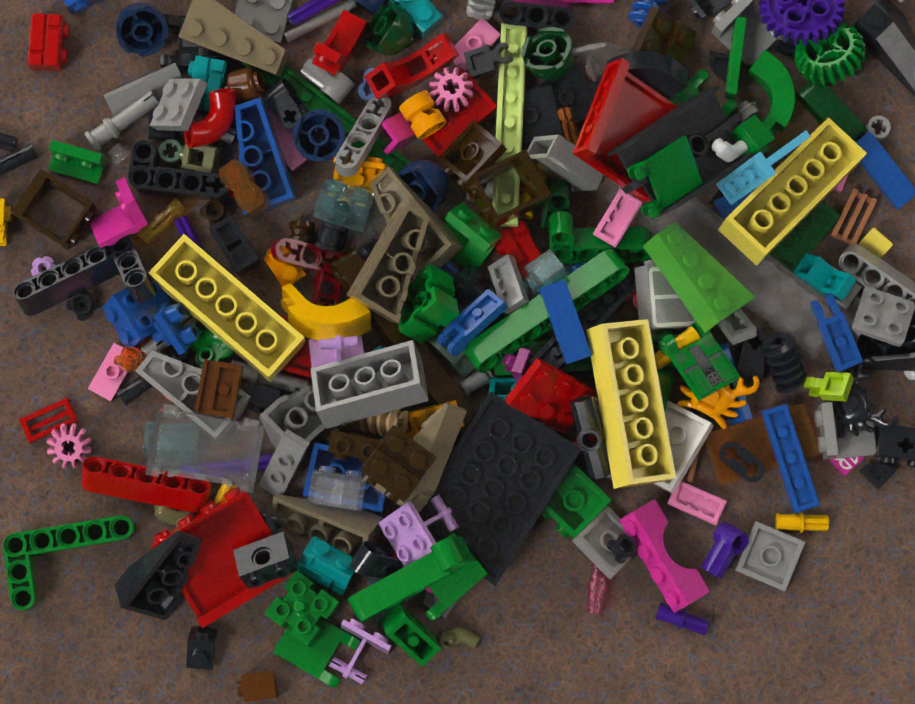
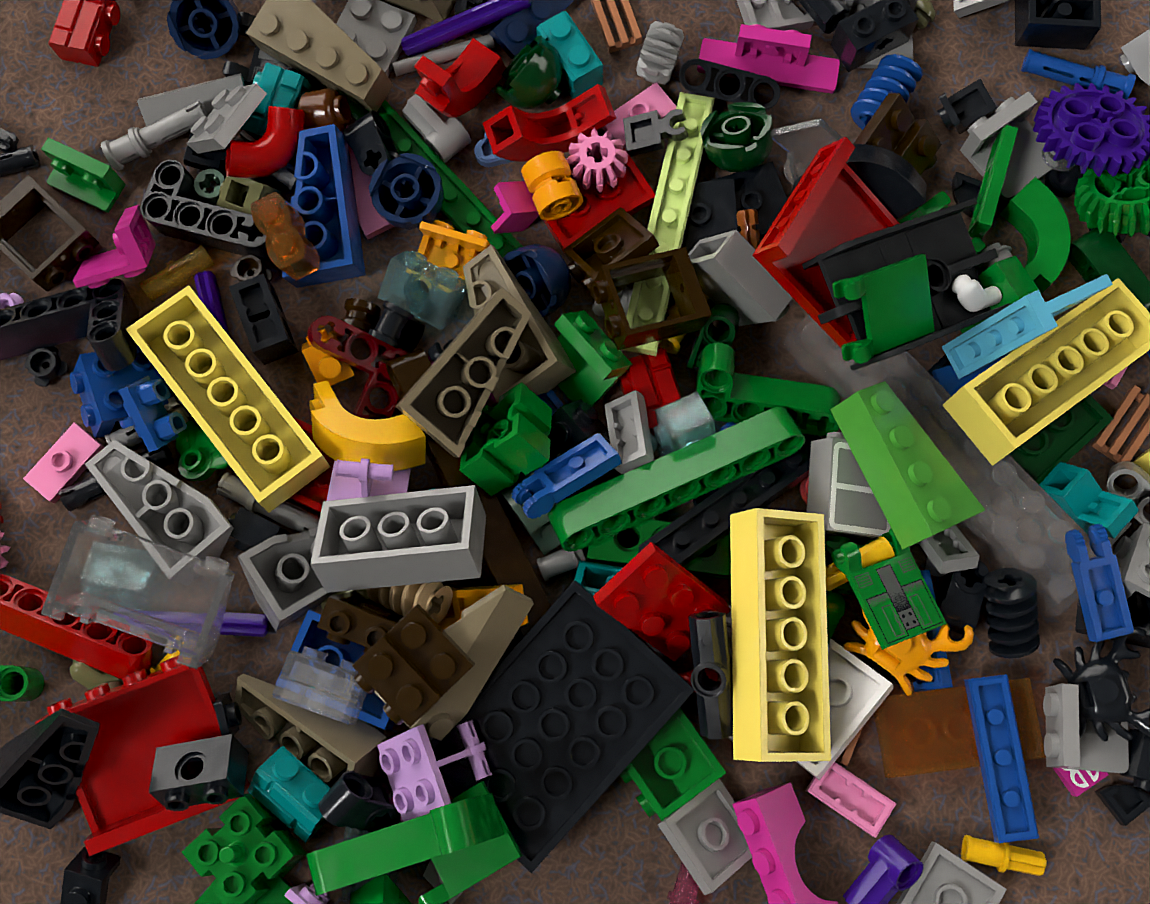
camera: 15 degrees right, 5 degrees down
(118, 153) = (139, 176): clear plate -> none
(129, 359) = (82, 446): clear orange plate -> none
(218, 389) = (186, 508): reddish brown plate -> none
(284, 463) = (260, 631): light grey plate -> none
(363, 135) = (460, 197): light grey beam -> none
(519, 364) = (622, 548): magenta tile -> none
(565, 322) = (701, 498): blue tile -> none
(617, 218) = (800, 366): bright pink plate -> none
(626, 543) = (740, 848): black plate -> none
(746, 457) = (935, 744): black beam -> none
(833, 387) = (1080, 662): lime plate -> none

